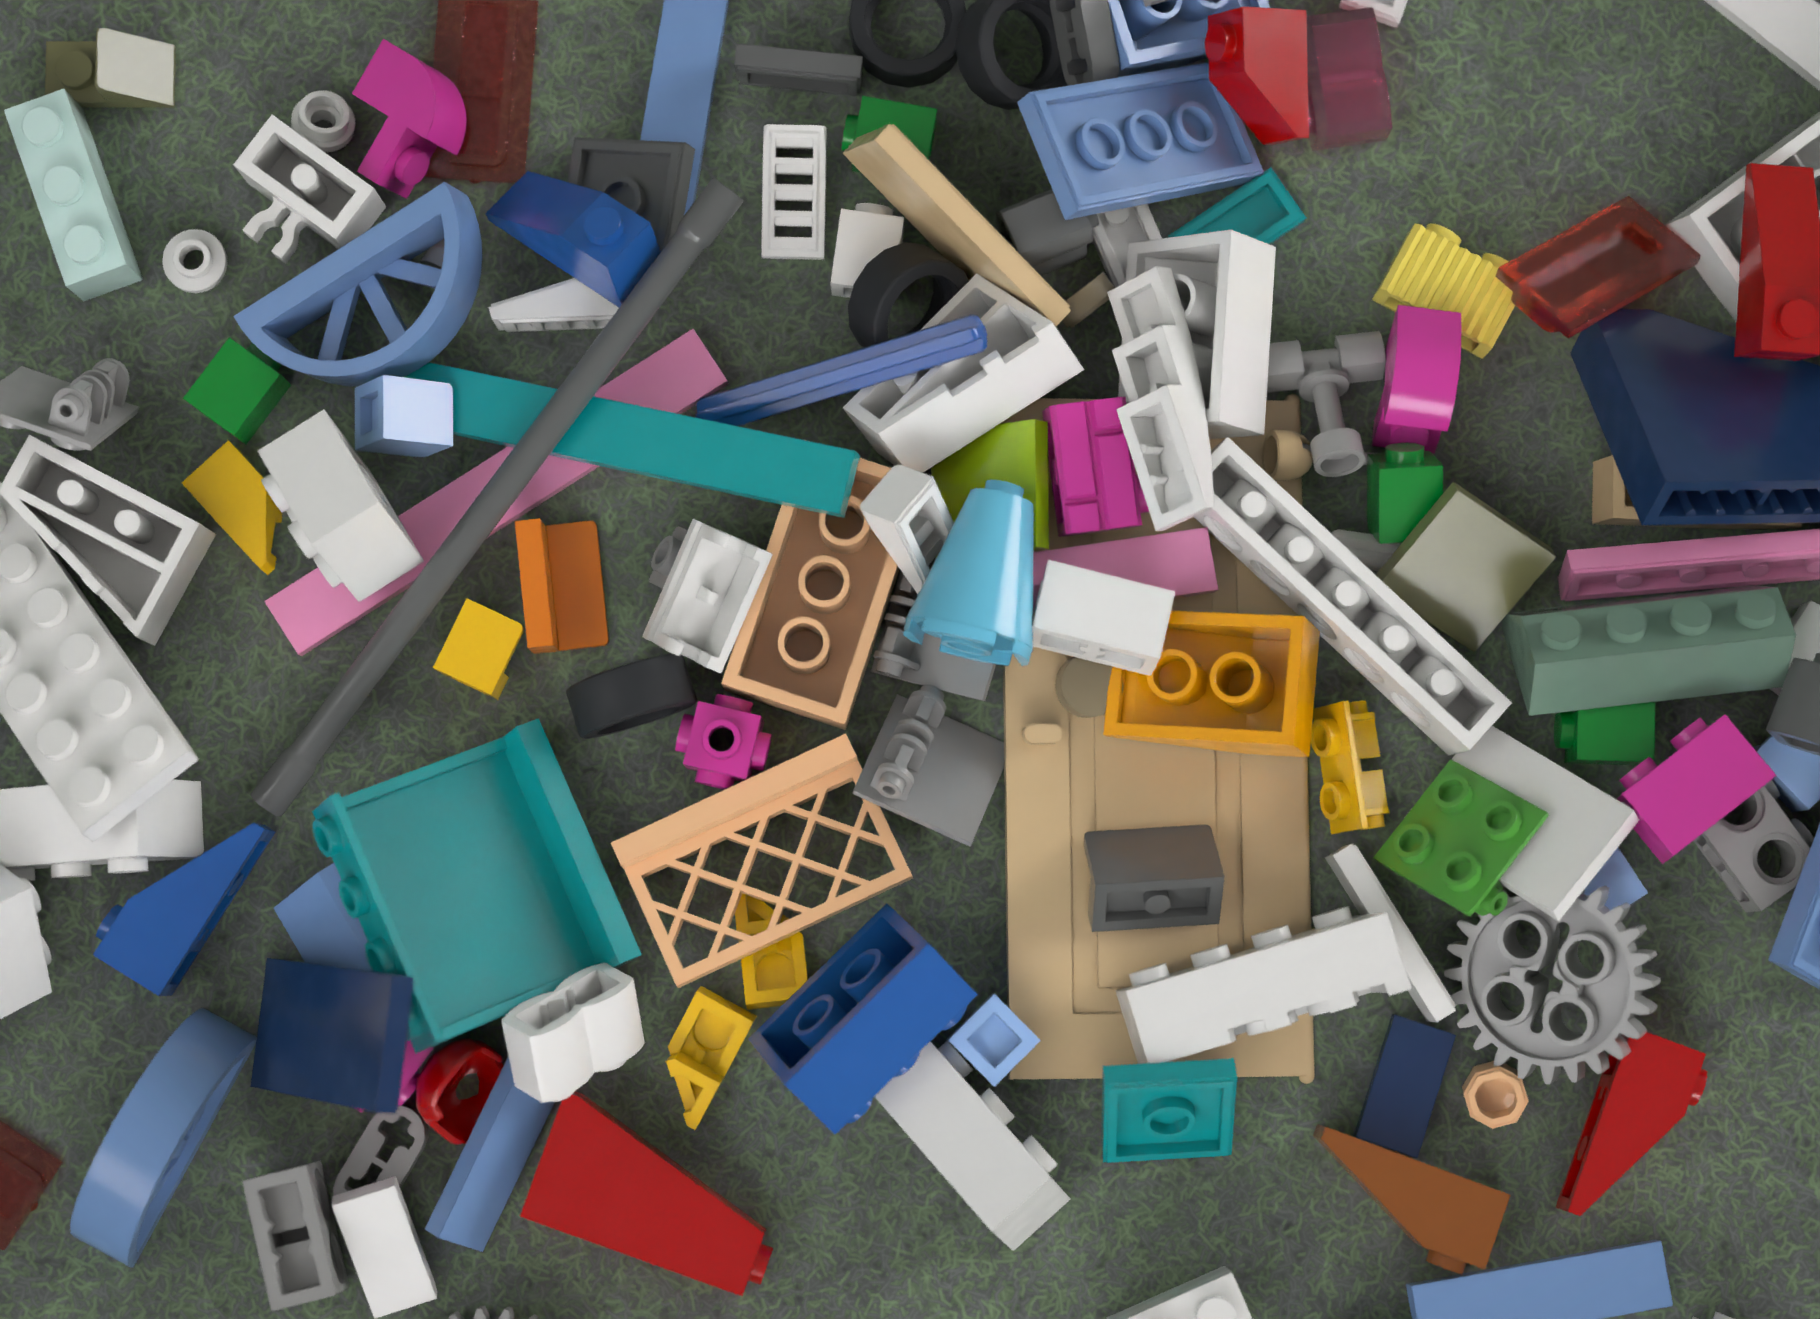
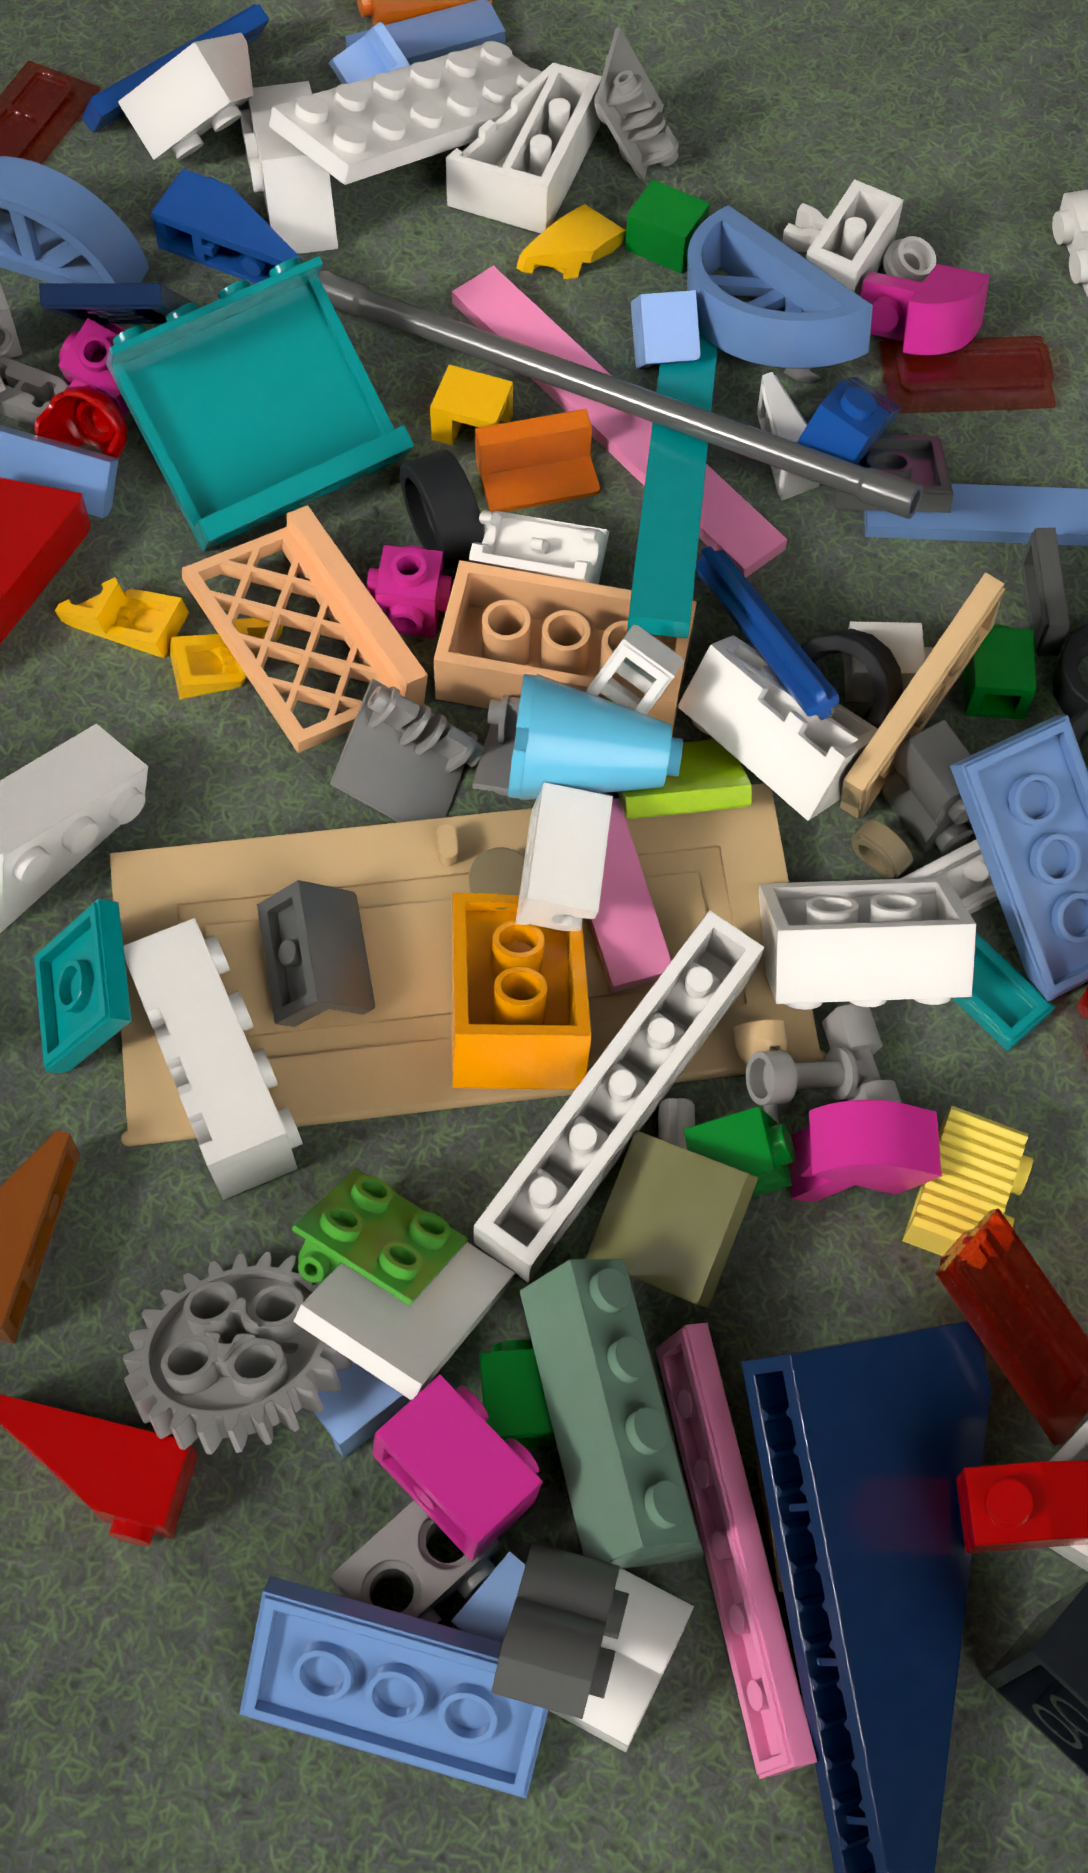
camera: 85 degrees right, 20 degrees down
(73, 195) = (807, 106): light aqua brick -> none
(113, 71) = (917, 129): slope -> none
(203, 277) = (771, 196): white plate -> none
(337, 508) = (576, 278): white brick -> none
(573, 1032) = (132, 490): white brick -> none
(794, 137) = (946, 584): white slope -> none
(862, 1019) = (155, 709): blue brick -> none
(993, 1040) = (145, 825): light blue panel -> none
(1092, 468) = (716, 852): dark pink brick -> none
(1165, 397) = (777, 887): white slope -> none
(1341, 738) = (475, 1134): yellow hinge -> none
(1371, 898) = (278, 1192): white tile -> none
(1404, 1085) = (121, 1231): dark blue tile -> none
(1494, 1094) = (110, 1318): light nougat tile -> none

